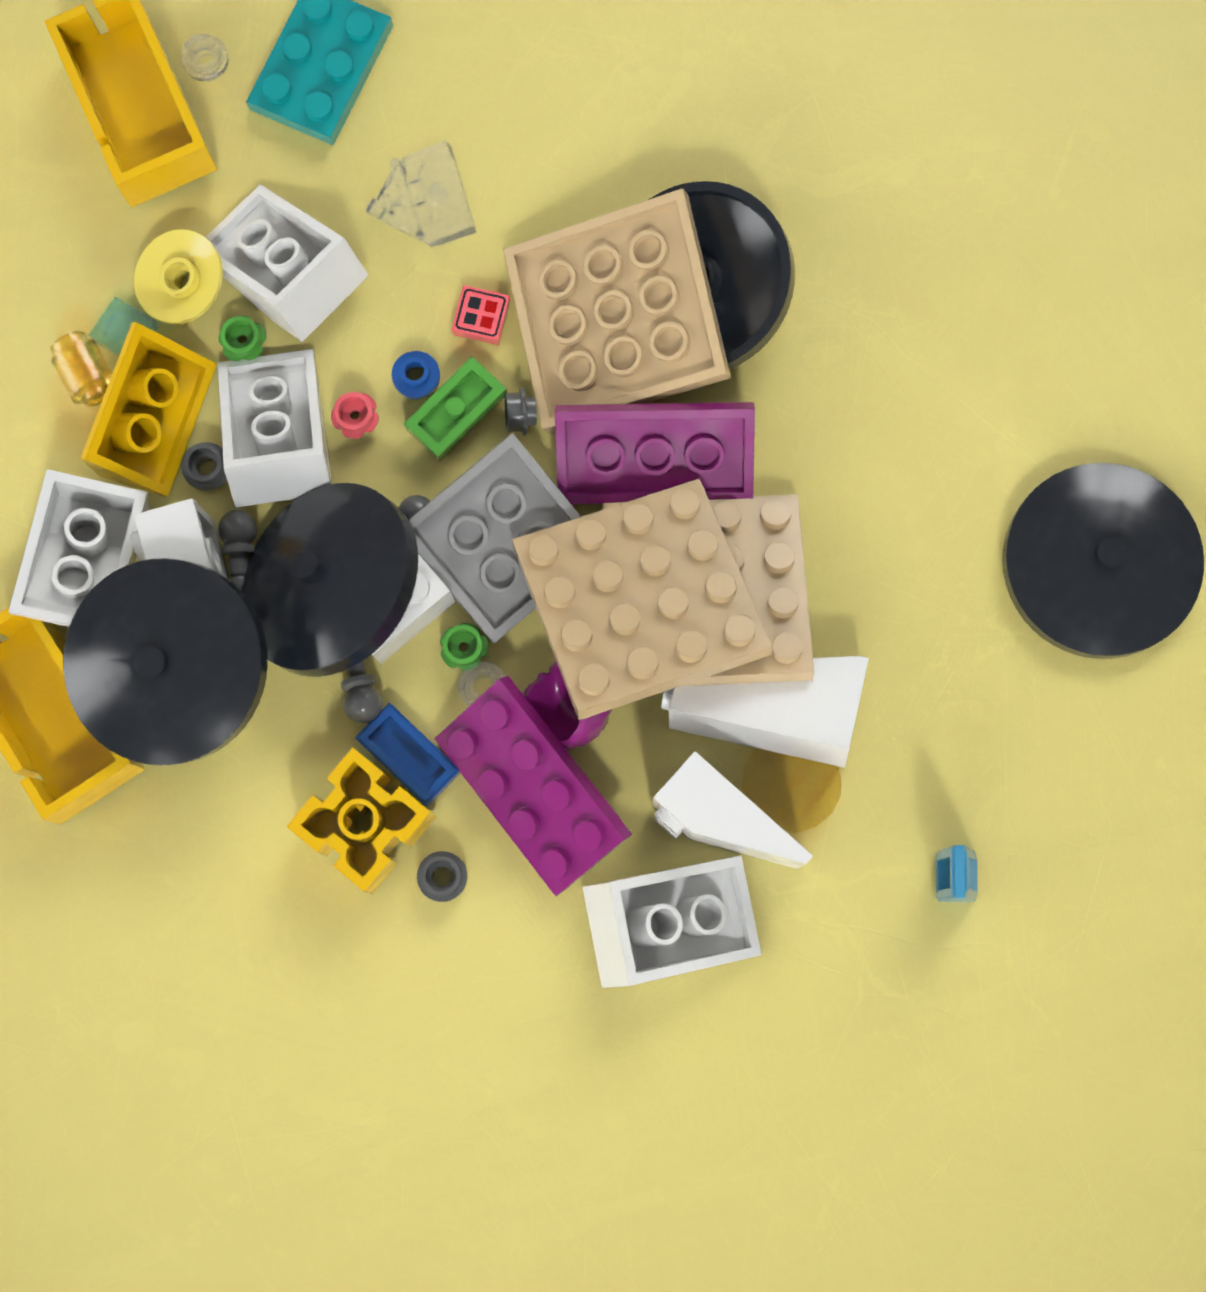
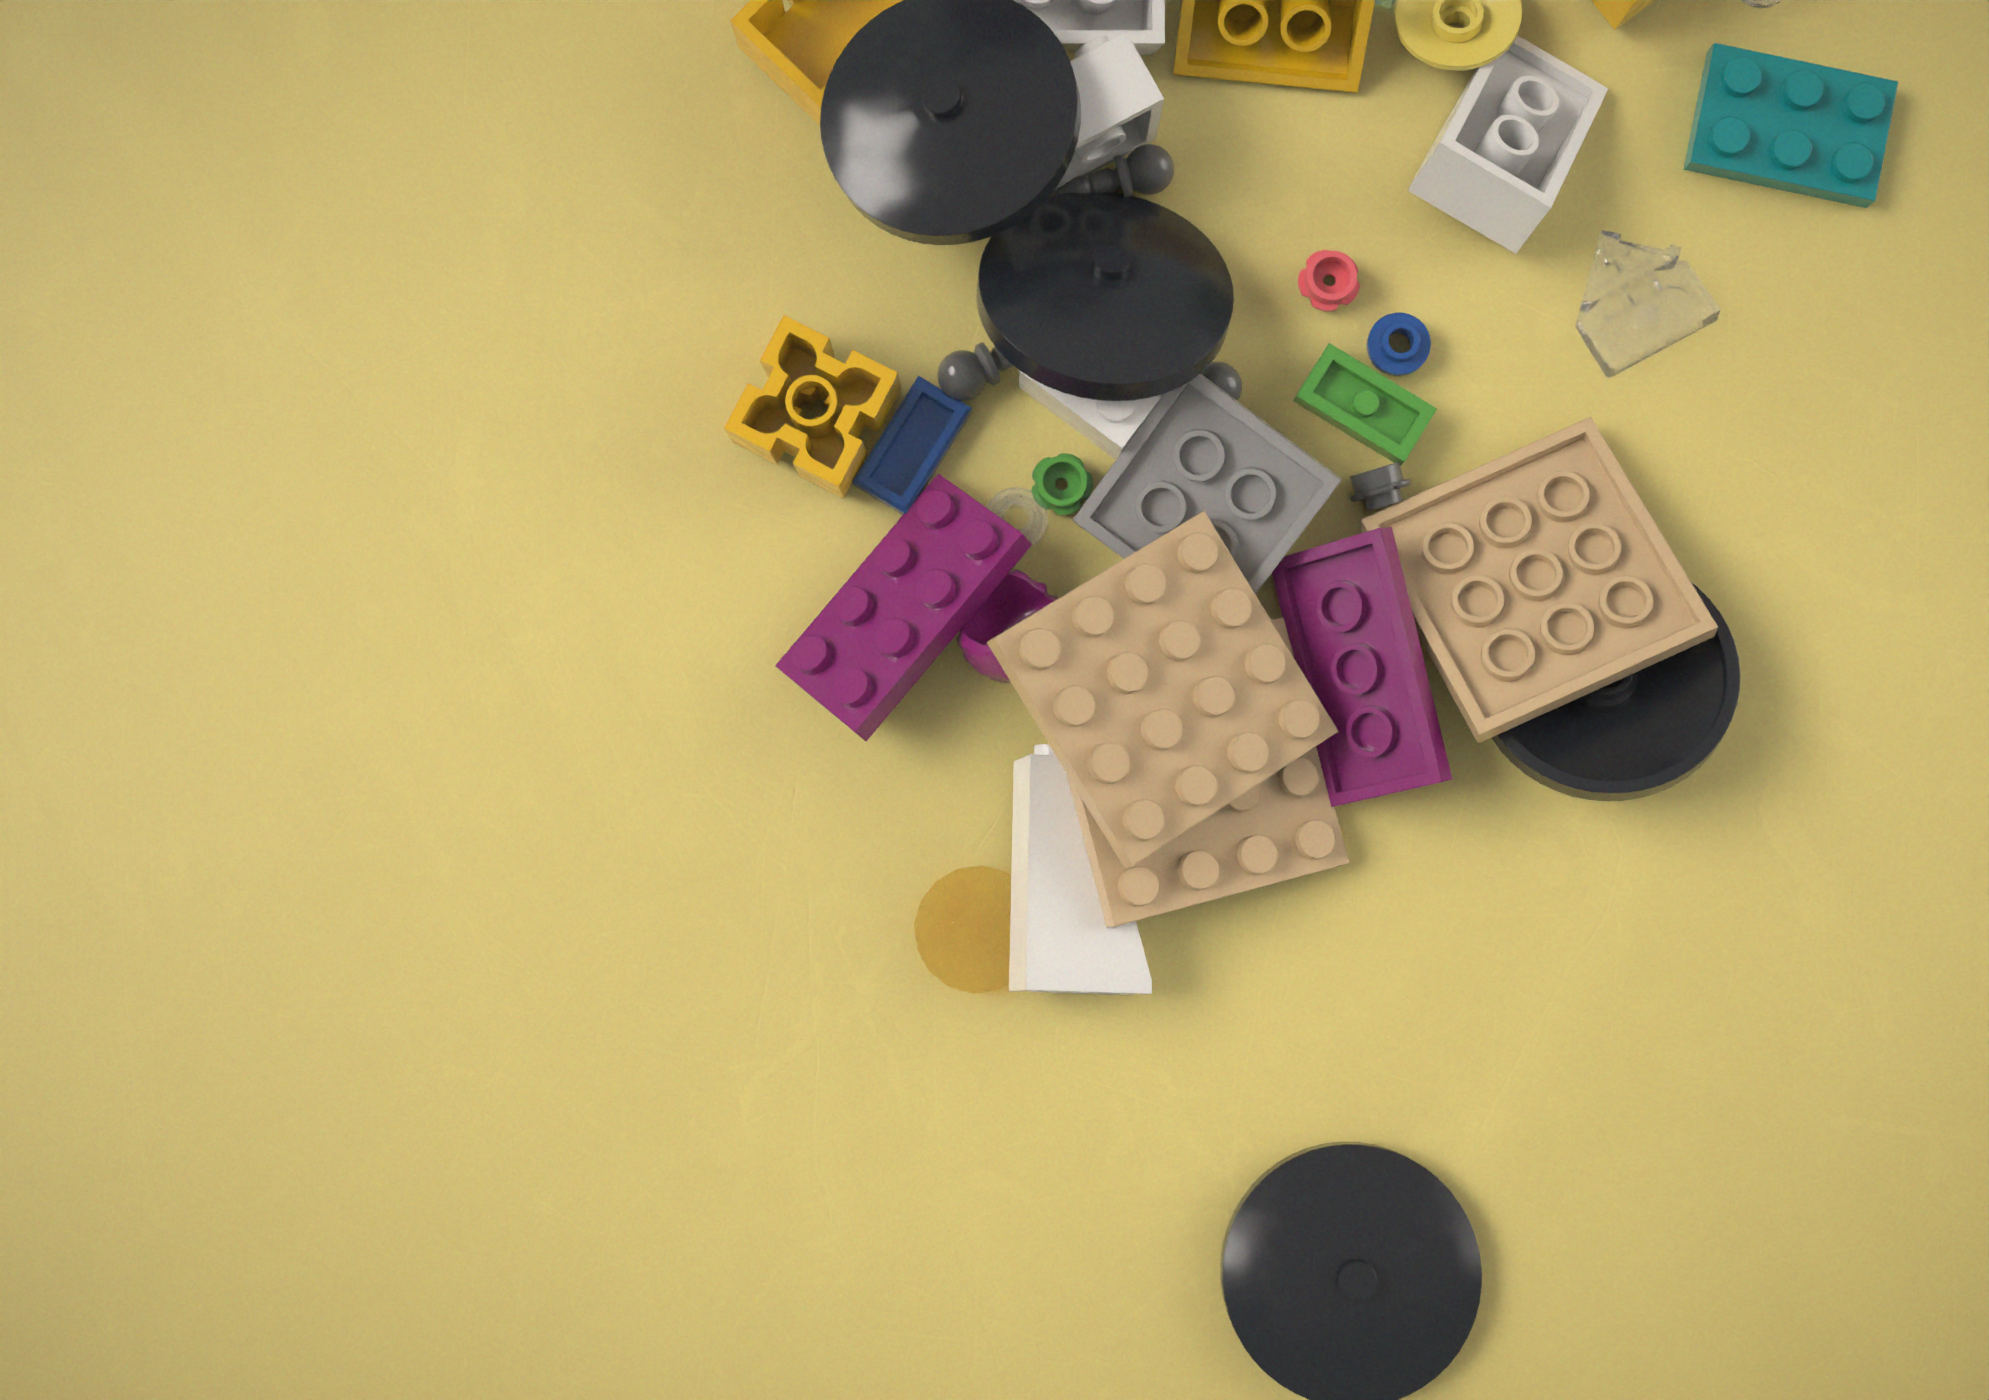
camera: 75 degrees right, 5 degrees up
(193, 460) = (1226, 94): dark grey plate -> none
(233, 330) = (1396, 99): bright green plate -> none
(272, 428) = (1288, 180): white slope -> none
(426, 872) = (757, 508): dark grey plate -> none
(481, 315) = (1496, 409): coral tile -> none
(671, 922) = (772, 815): white slope -> none
(718, 814) = (912, 838): white slope -> none
(956, 874) = (902, 1159): dark azure slope -> none

